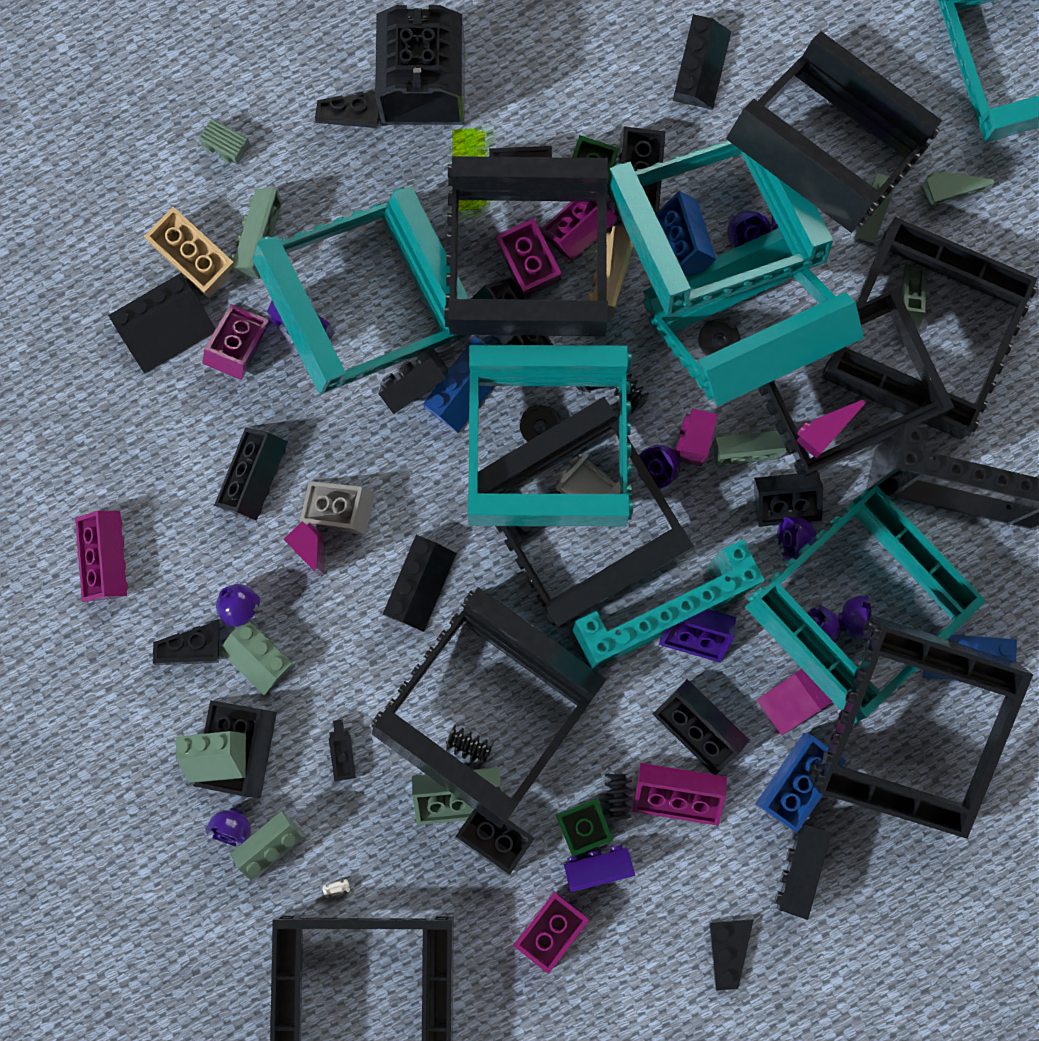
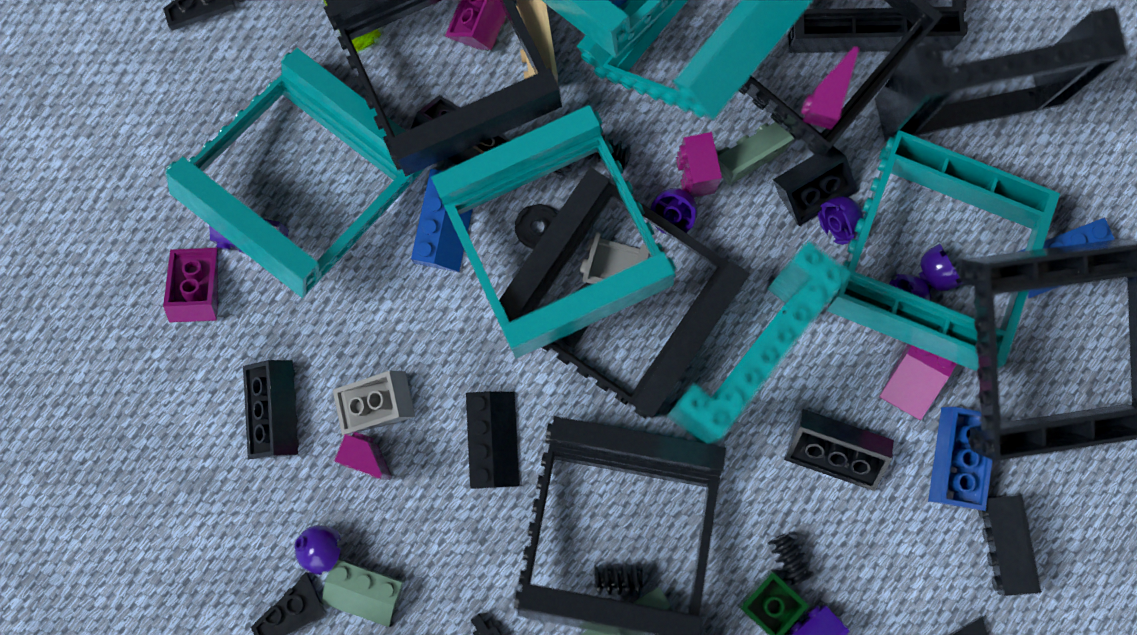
camera: 25 degrees left, 0 degrees up
(101, 556) = (156, 564): magenta slope -> none
(162, 323) = (109, 300): black slope -> none
(190, 252) = (104, 216): tan slope -> none
(224, 142) = (87, 91): sand green brick -> none
(258, 223) = (161, 149): sand green slope -> none
(413, 380) = (389, 240): black brick -> none
(528, 257) = (447, 66): magenta brick -> none
(679, 794) = (850, 526): magenta slope -> none
(702, 635) = (804, 361): dark purple slope -> none
(715, 327) = (668, 48): black tile -> none

